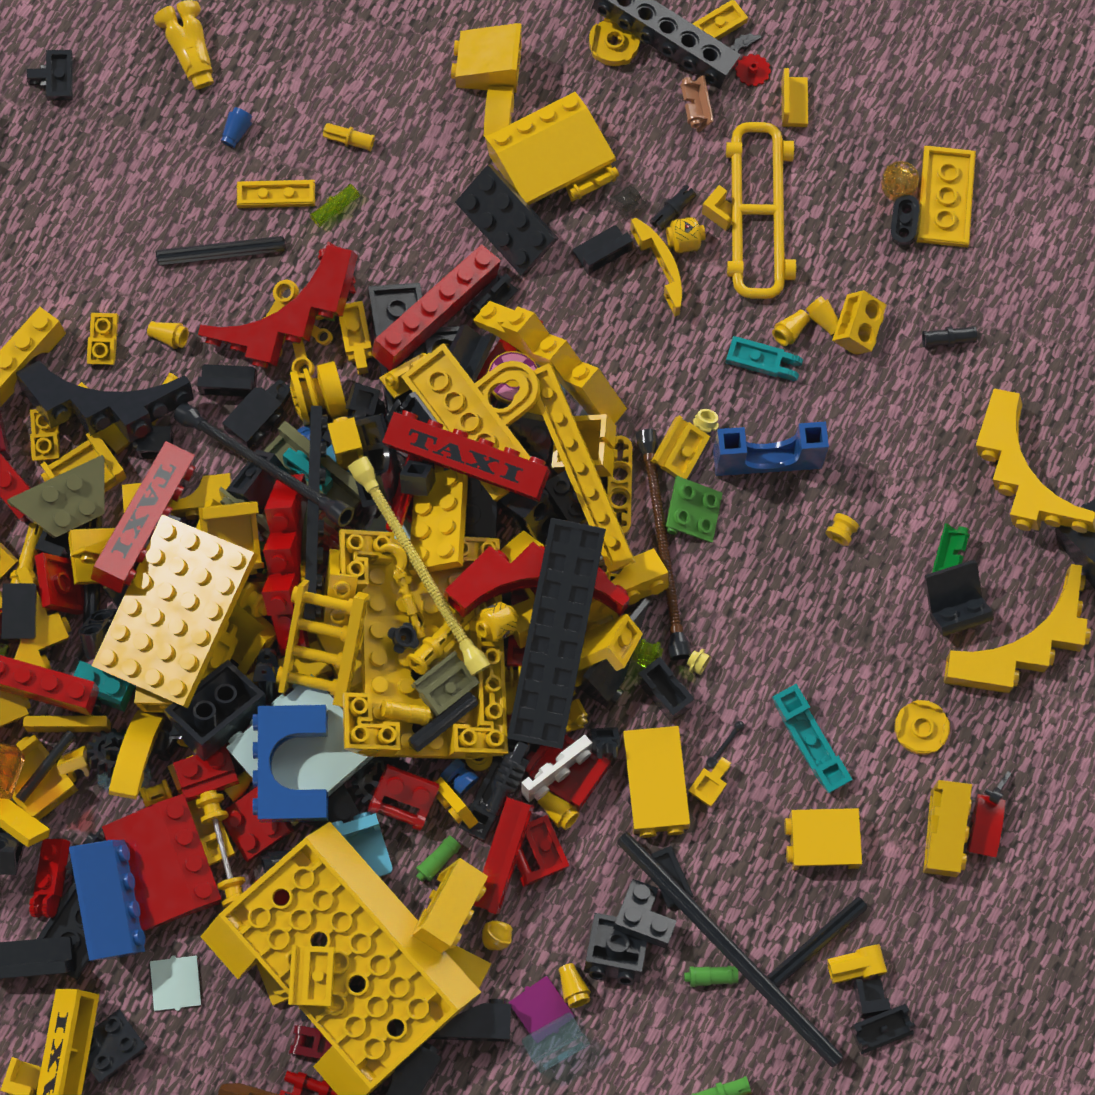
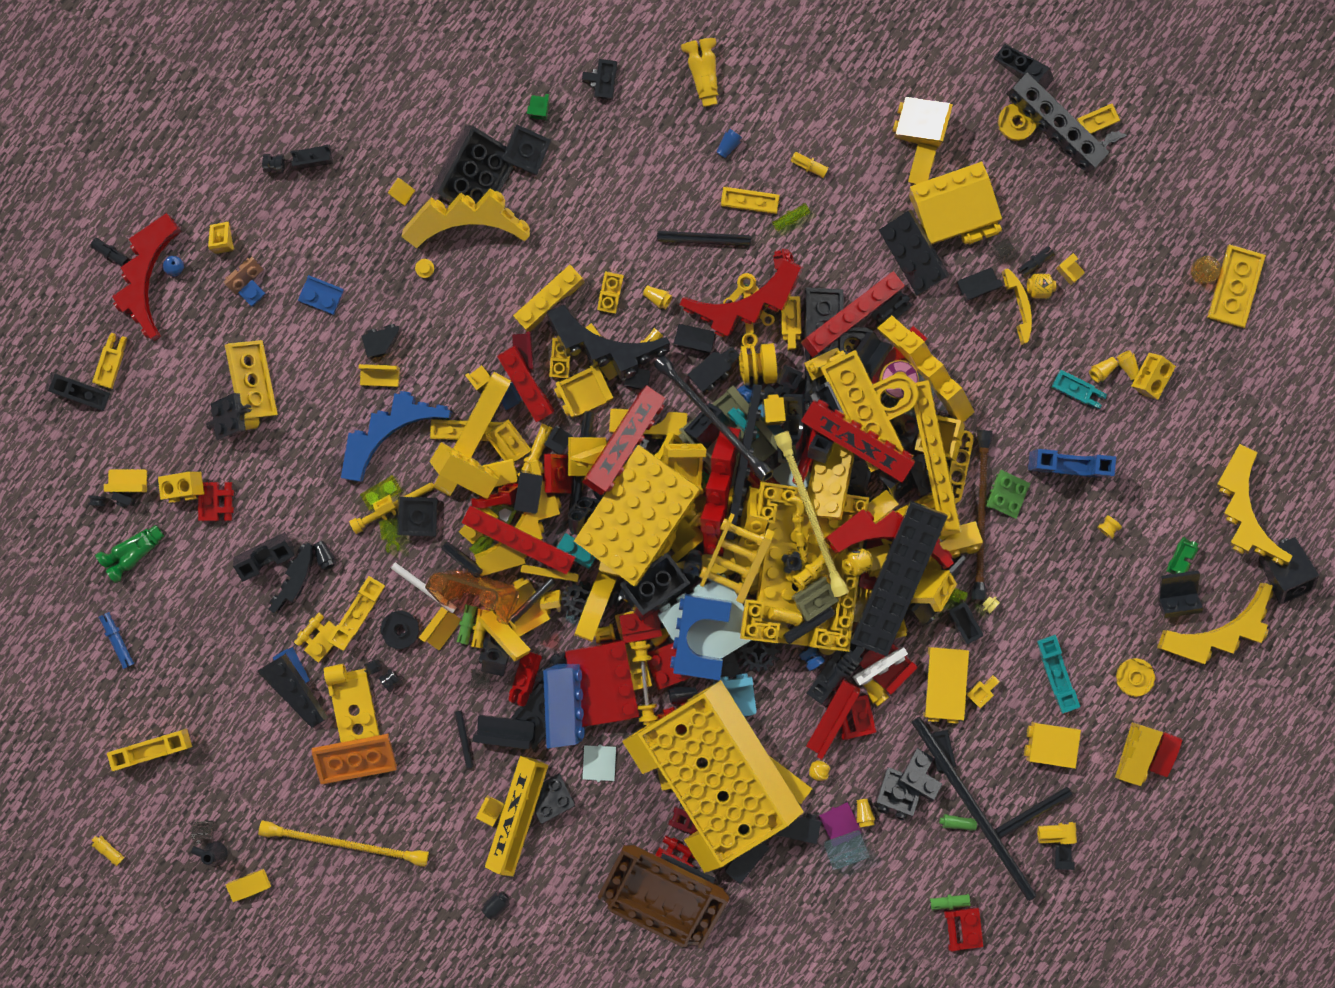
camera: 15 degrees right, 15 degrees up
(65, 499) = (570, 414): olive wing -> none
(311, 976) = (694, 788): yellow plate -> none
(406, 789) = (775, 663): red plate -> none
(437, 859) = (787, 711): bright green piece -> none
(450, 906) = (793, 751): yellow wedge -> none
(458, 809) = (808, 684): yellow plate -> none
(605, 741) = (916, 651): black plate -> none
(680, 448) = (1007, 448): yellow plate -> none
(699, 110) = (1070, 189): nougat hinge -> none
(706, 420) = (1029, 429): light yellow plate -> none
(712, 761) = (1009, 654): black hinge -> none
(753, 70) = (1115, 161): red piece -> none
(783, 268) = (1107, 323): yellow bar -> none
(794, 100) = (1140, 192): yellow panel -> none
(883, 1029) = (1066, 879): black hinge -> none
(905, 221) = (1202, 302): black plate -> none
(949, 336) = (1215, 396): black pin -> none
(996, 795) = (1176, 736): black piece -> none

